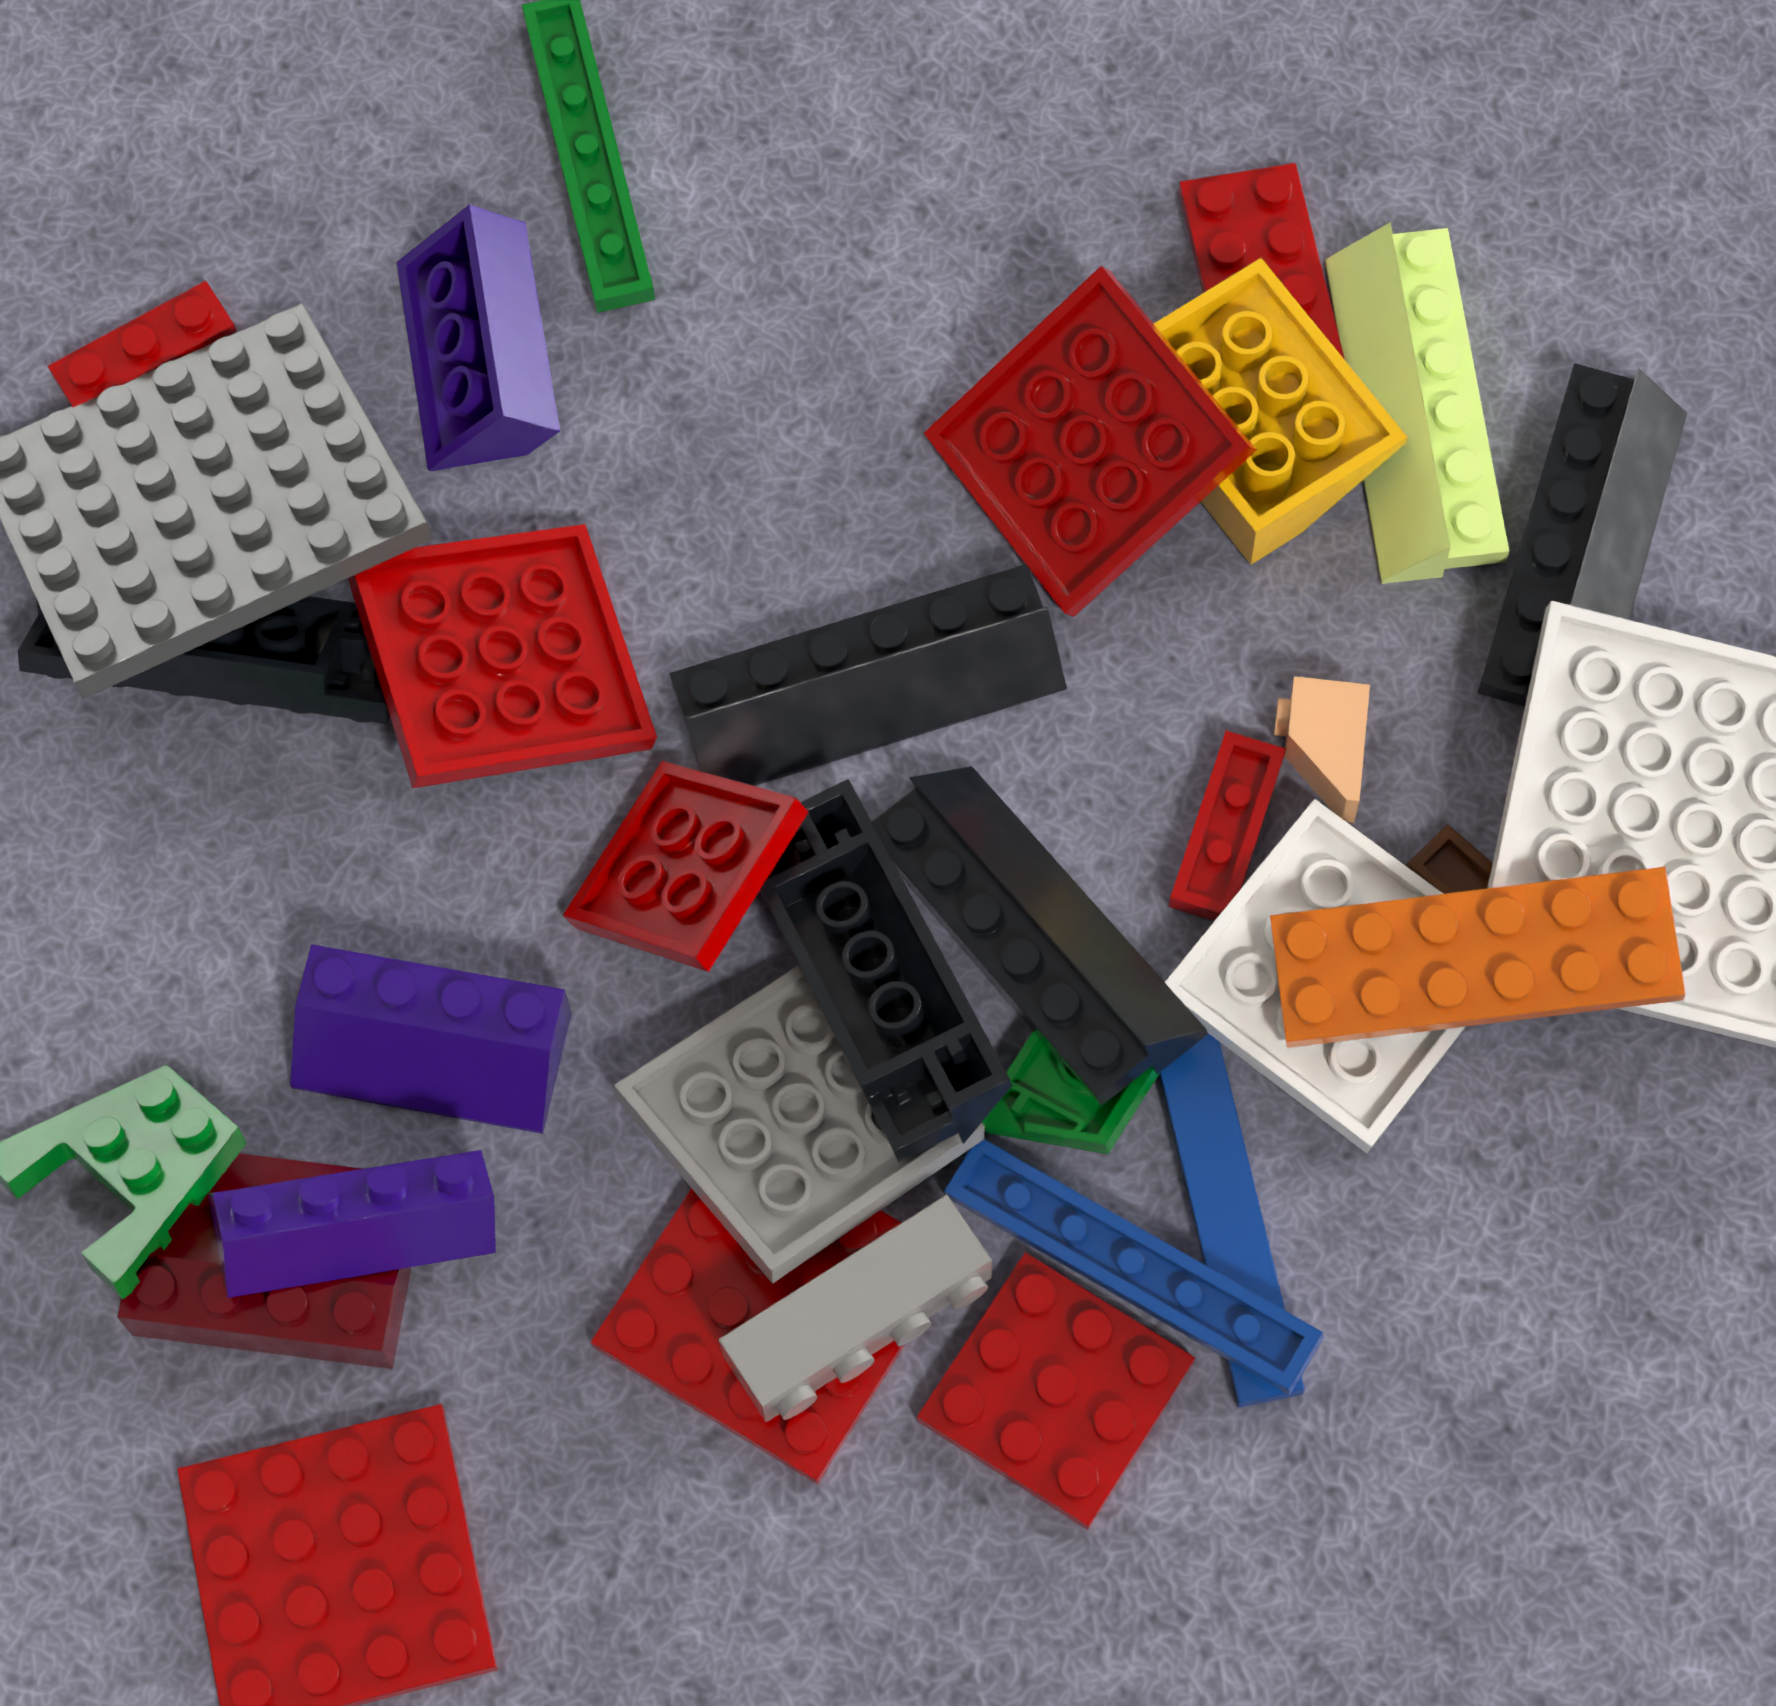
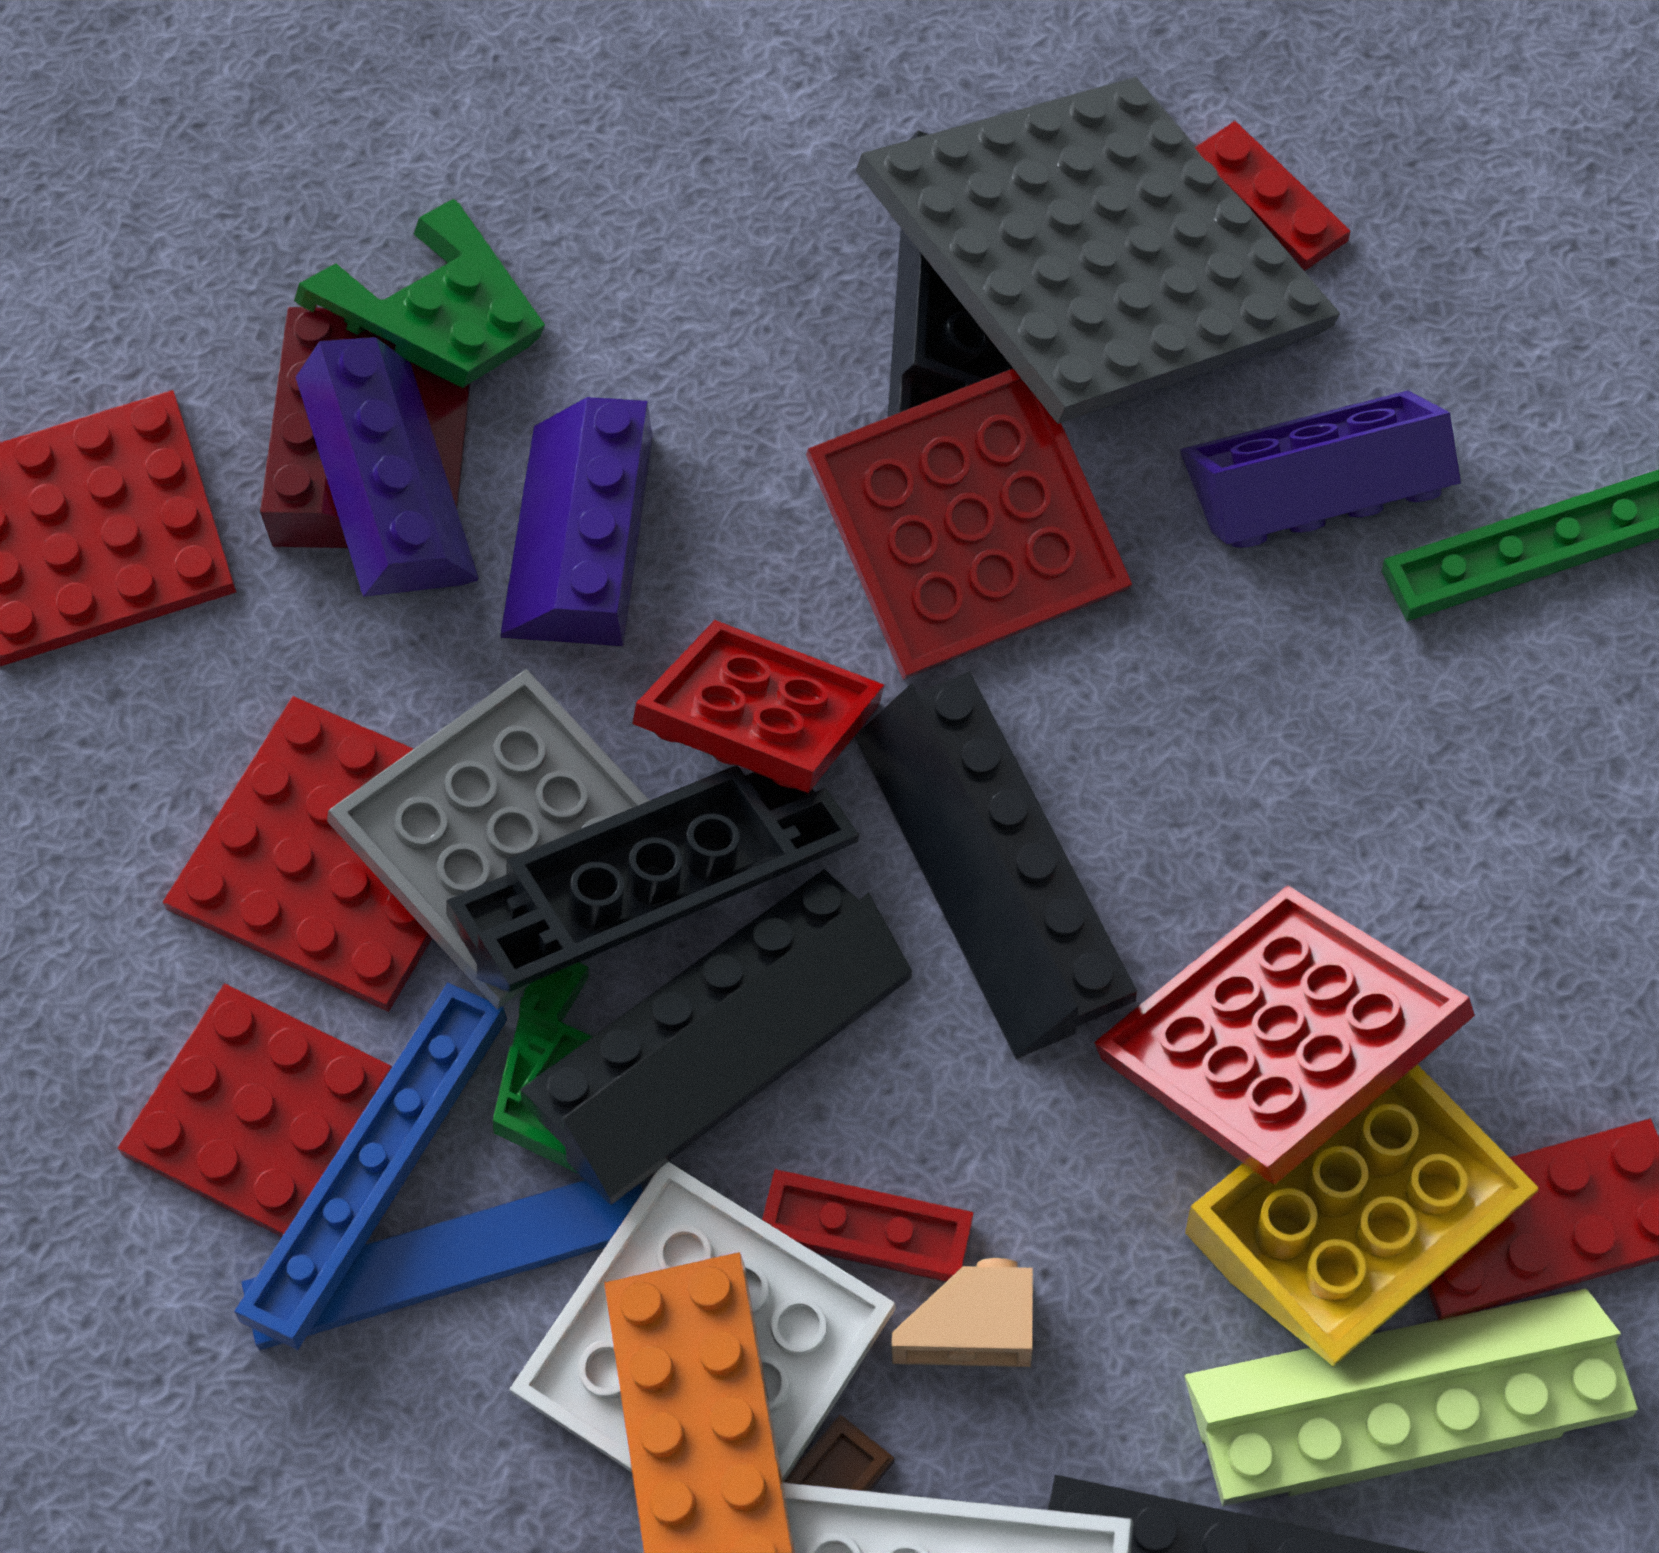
camera: 85 degrees right, 5 degrees down
(857, 1309) = (310, 904): light grey brick -> none

